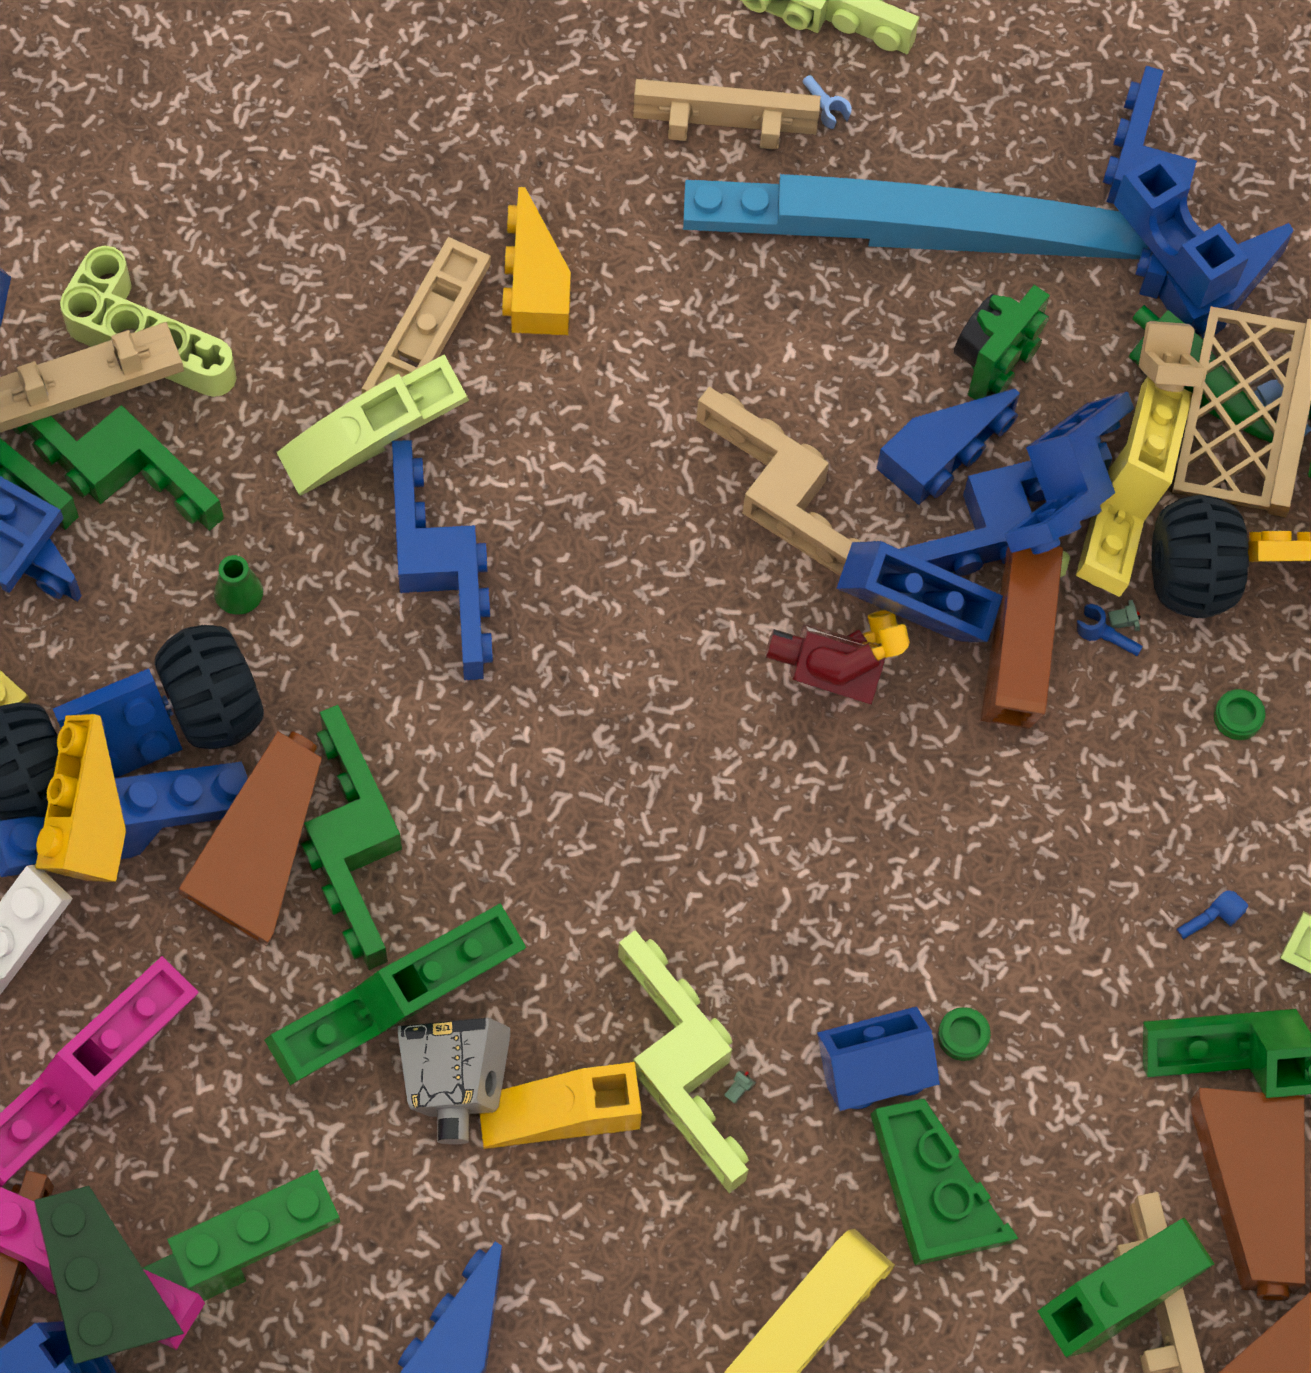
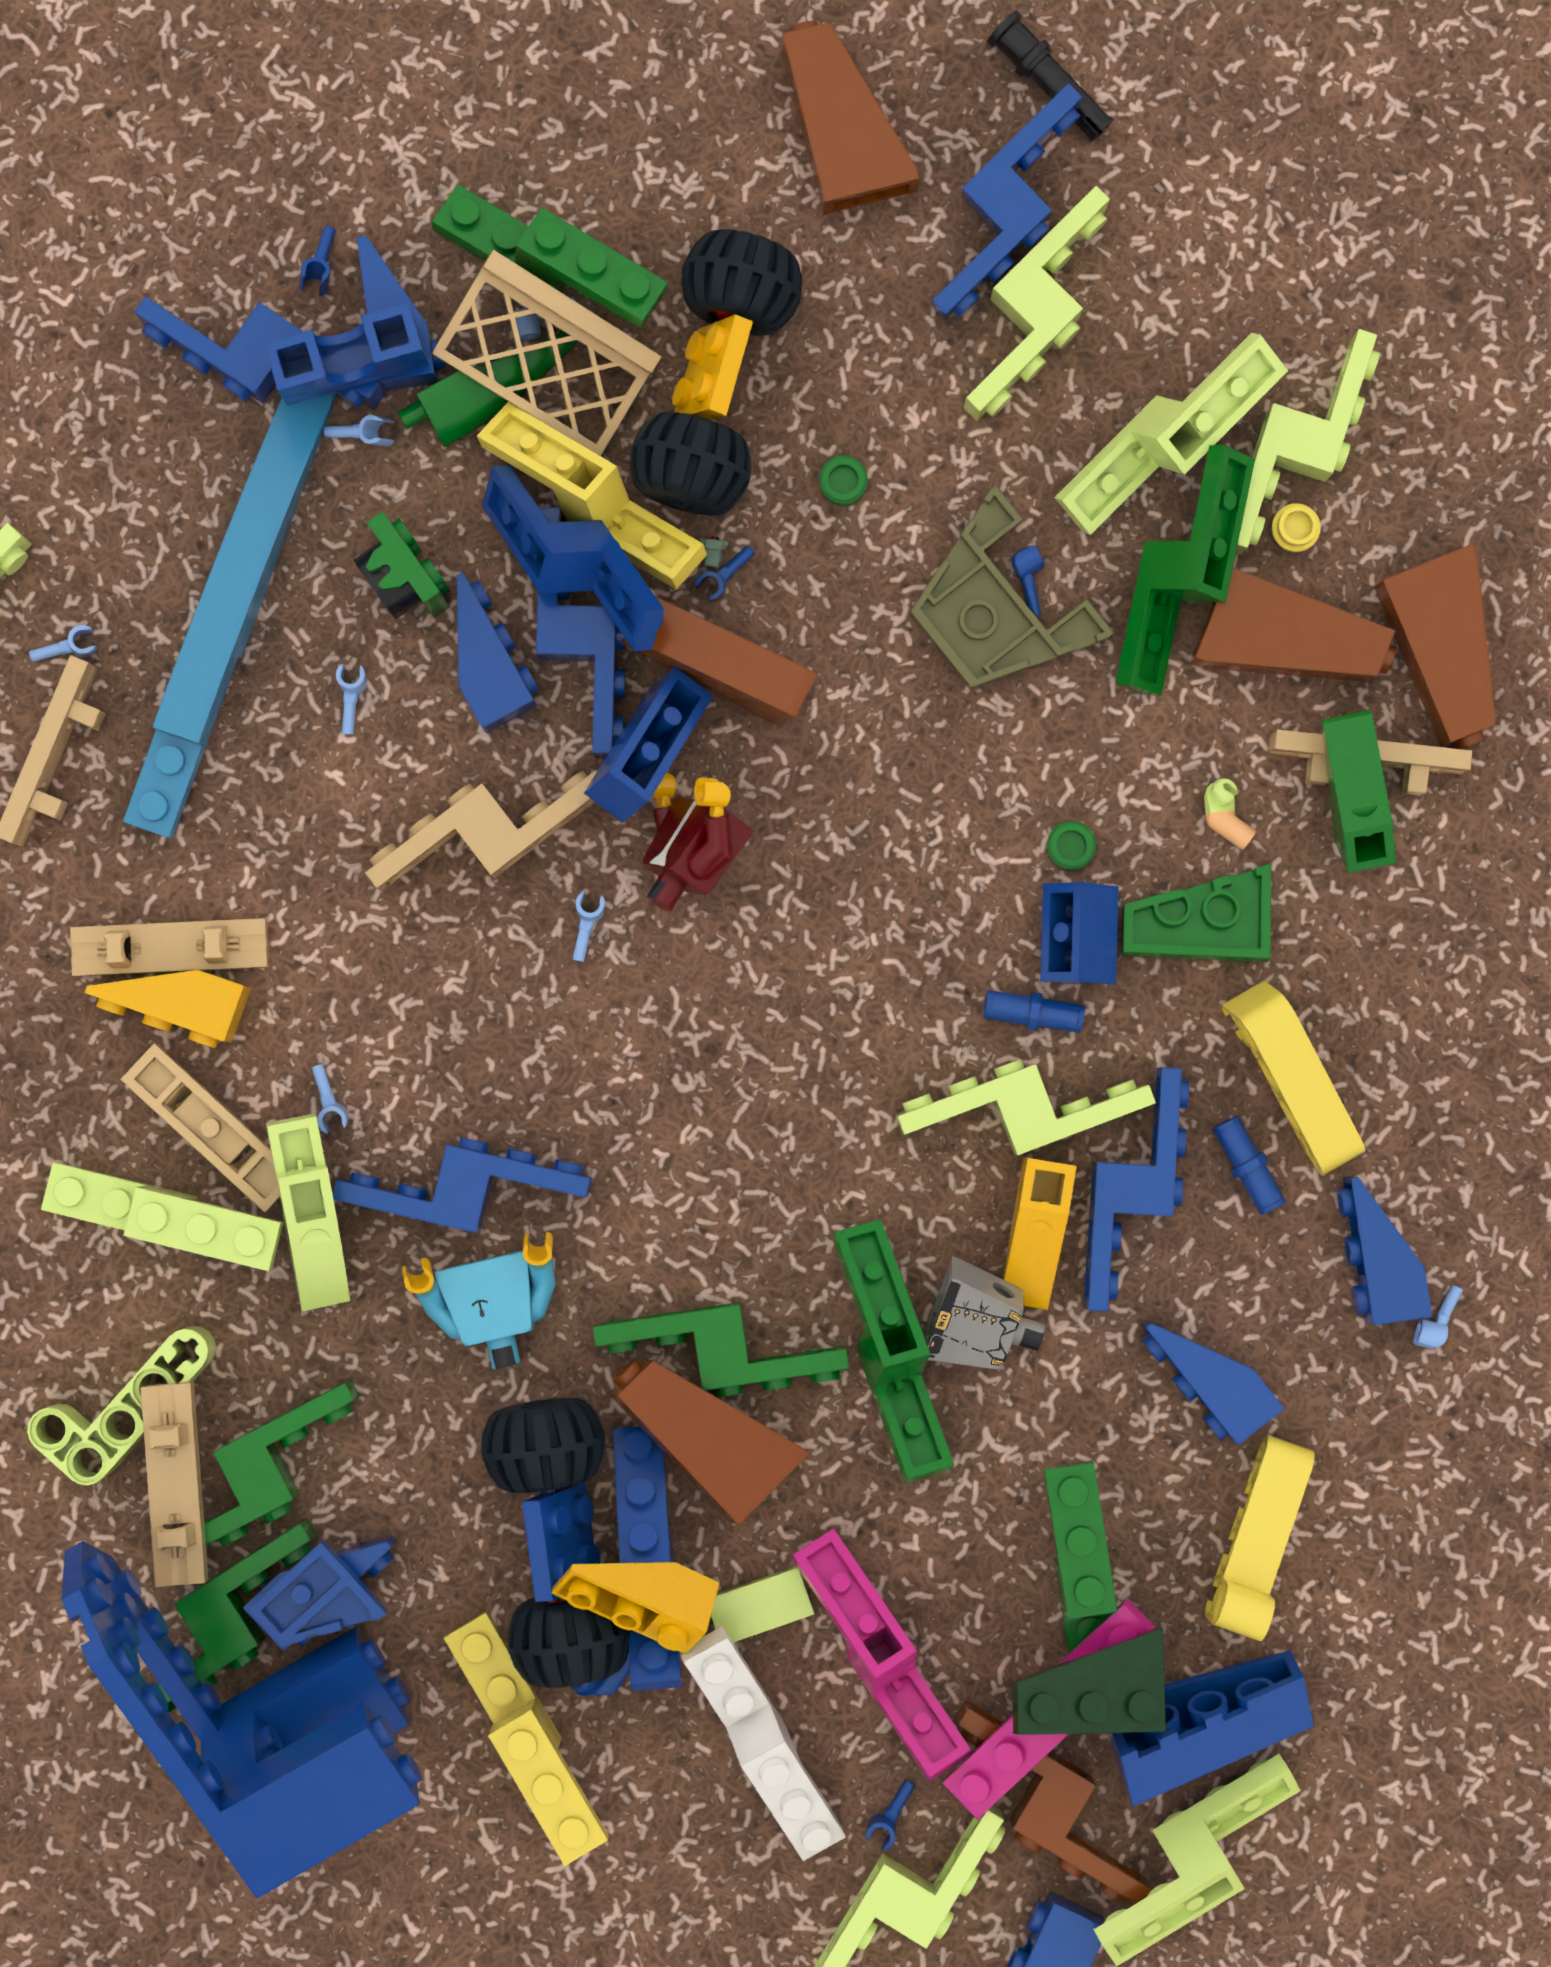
camera: 70 degrees left, 20 degrees up
(98, 949) = (762, 1604): none -> yellowish green tile
(237, 586) = (444, 1377): green cone -> none
(331, 308) = (162, 1216): none -> yellowish green bracket
(338, 609) = (489, 1298): none -> medium azure torso
(481, 426) = (327, 1099): none -> light blue hand
(593, 276) = (170, 947): none -> tan hinge
(635, 1195) = (1135, 1188): none -> blue bracket
(698, 1309) = (1249, 1165): none -> blue pin
(729, 603) = (585, 926): none -> light blue hand
(740, 1086) = (1057, 1060): sand green piece -> none
(784, 1043) = (1034, 1011): none -> blue pin
(873, 342) = (350, 697): none -> light blue hand
(1051, 1174) = (1221, 815): none -> arm
(1117, 288) = (366, 430): none -> light blue hand
(1155, 880) = (980, 617): none -> olive wing
(1167, 356) = (474, 415): tan bracket -> none
(1246, 207) = (317, 266): none -> blue hand

